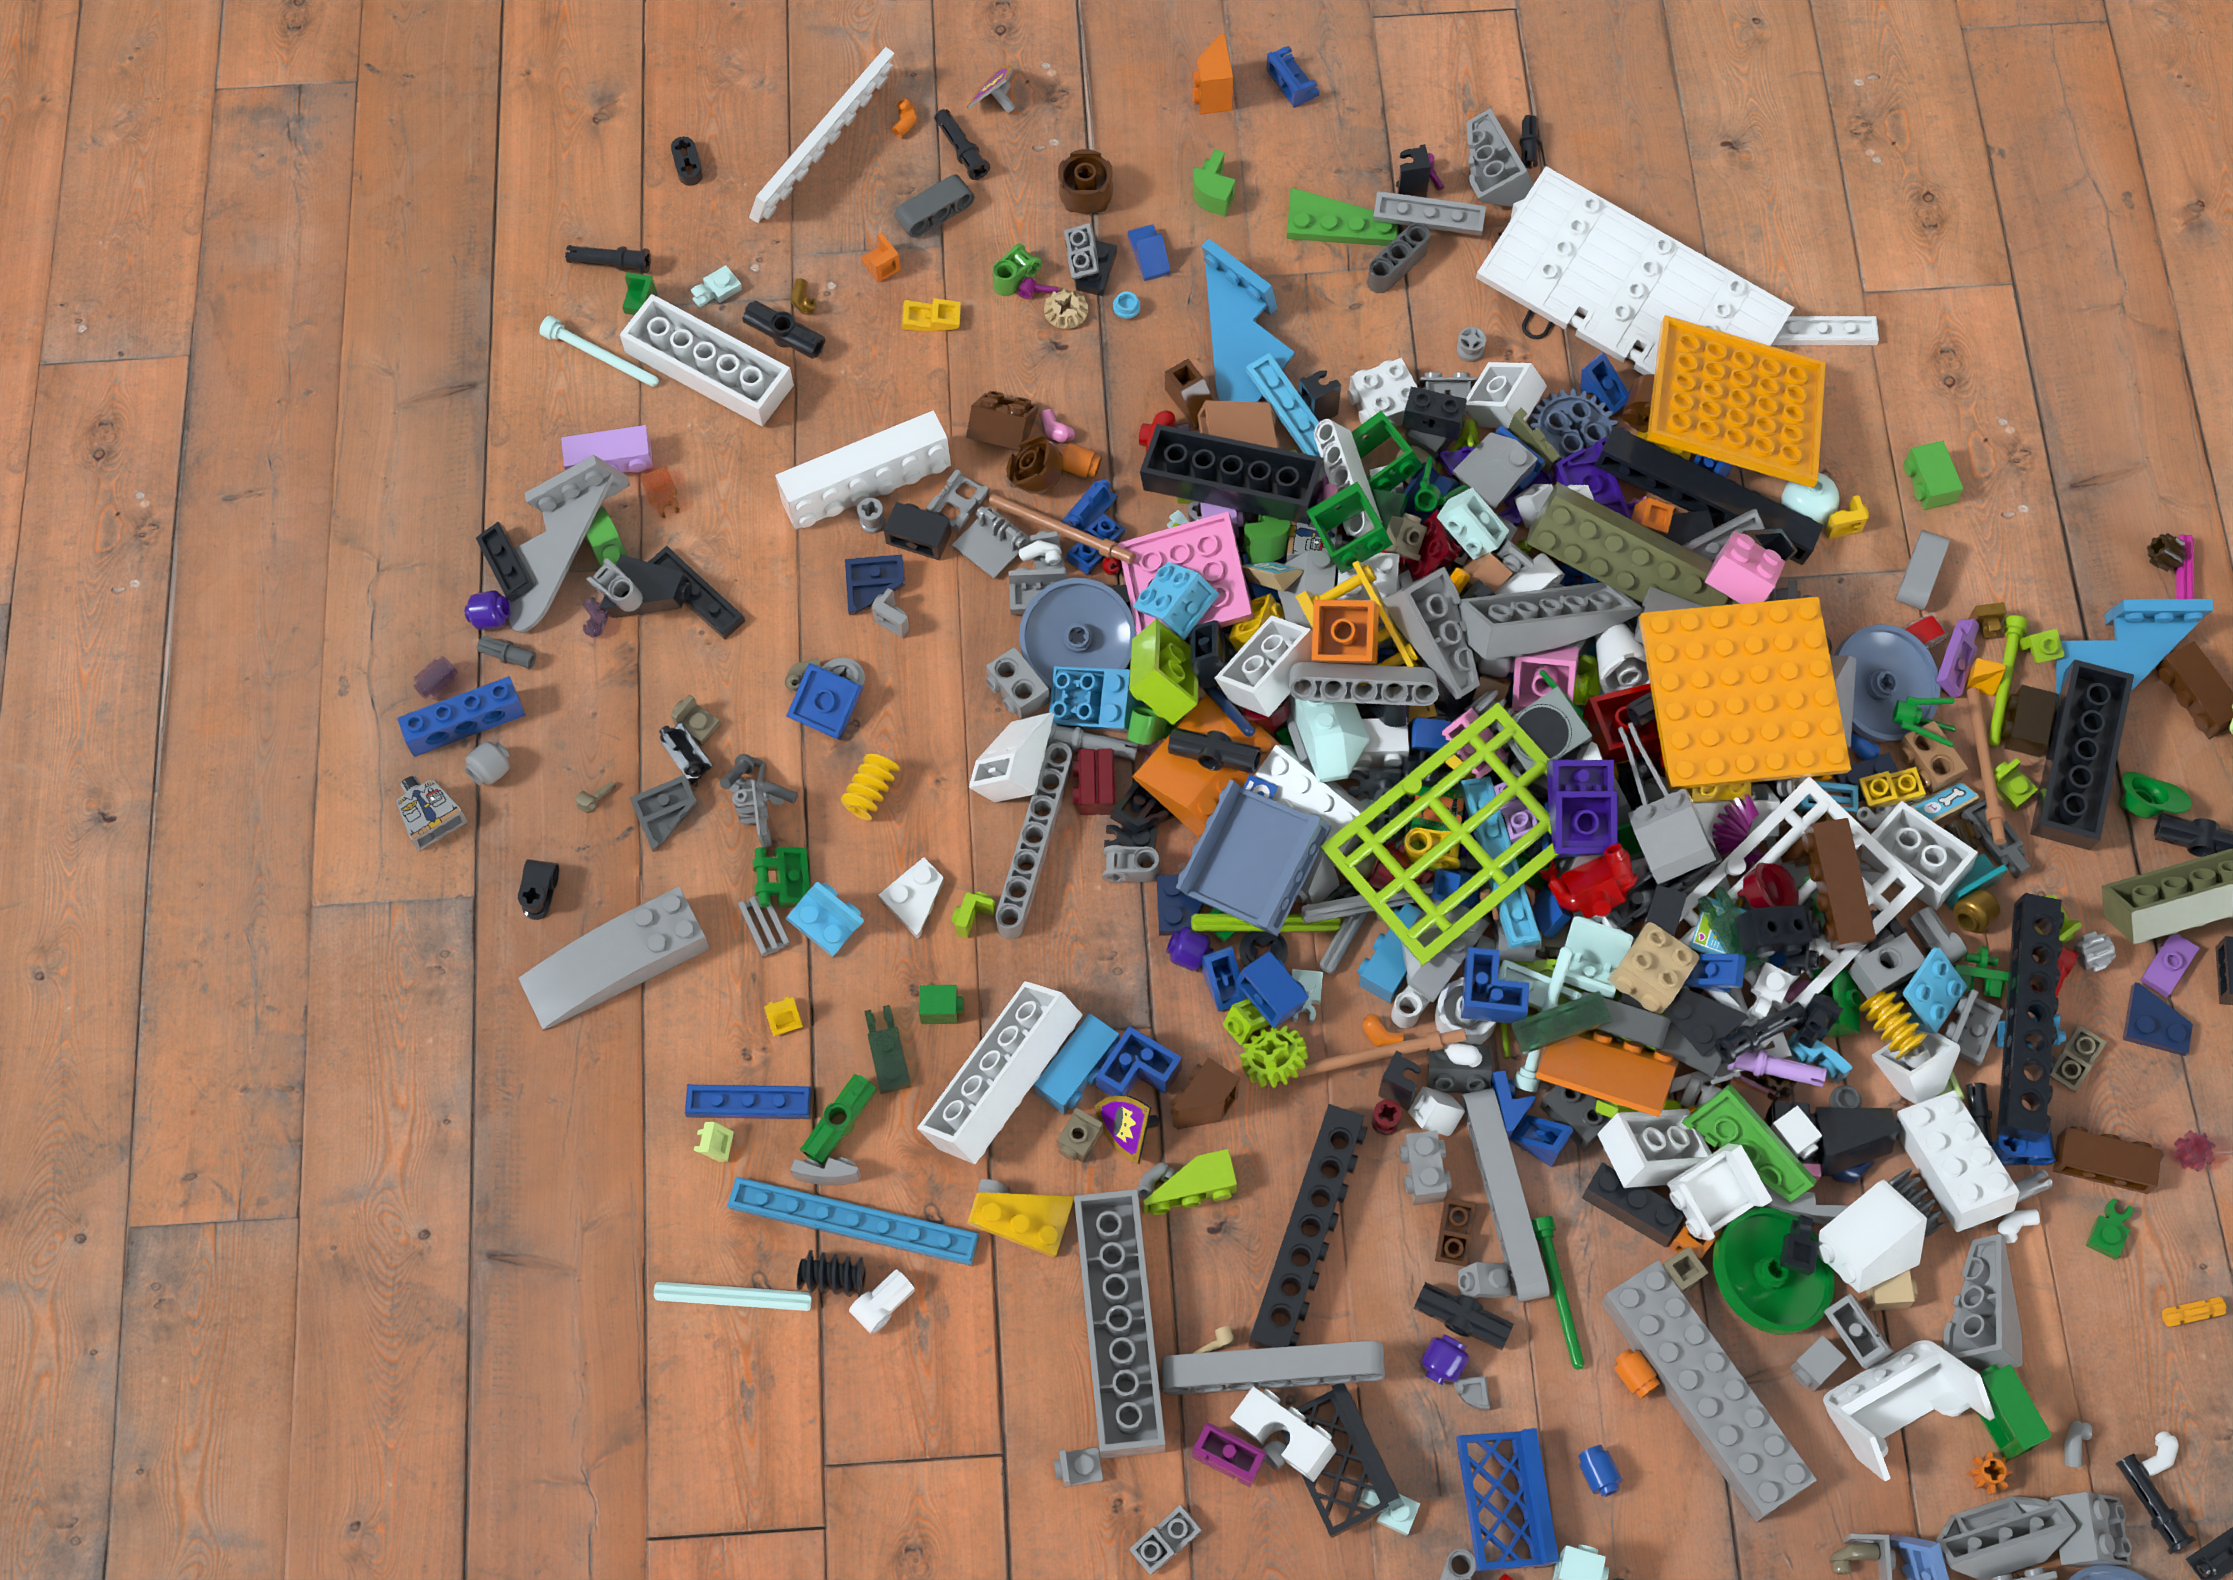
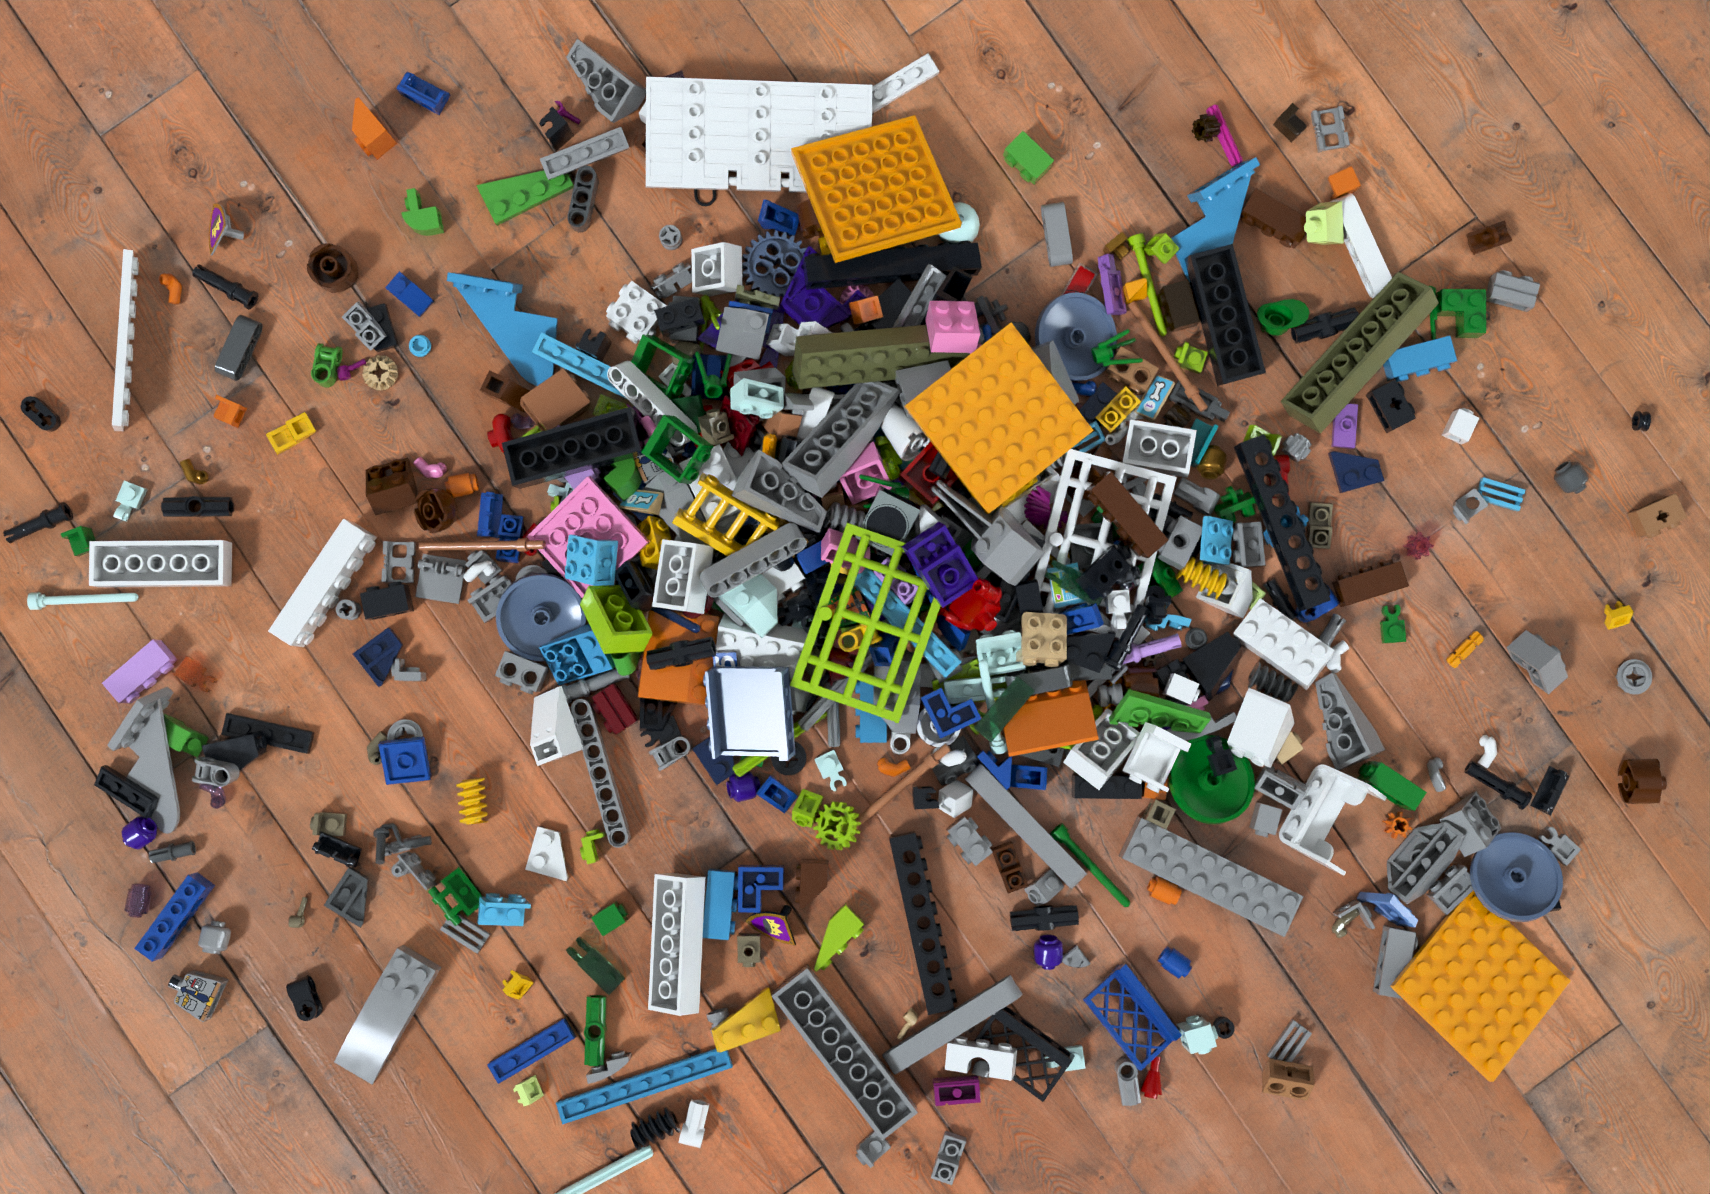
camera: 35 degrees left, 20 degrees up
(1151, 1177) = (808, 945): light grey arm -> none
(1272, 989) = (811, 785): blue brick -> none
(1345, 631) = (721, 535): orange brick -> none
(1389, 1108) = (926, 815): dark red bush -> none
(1529, 141) = (619, 49): black axle -> none
(1769, 887) = (1086, 544): dark red piece -> none
(1848, 522) = (988, 228): yellow bracket -> none

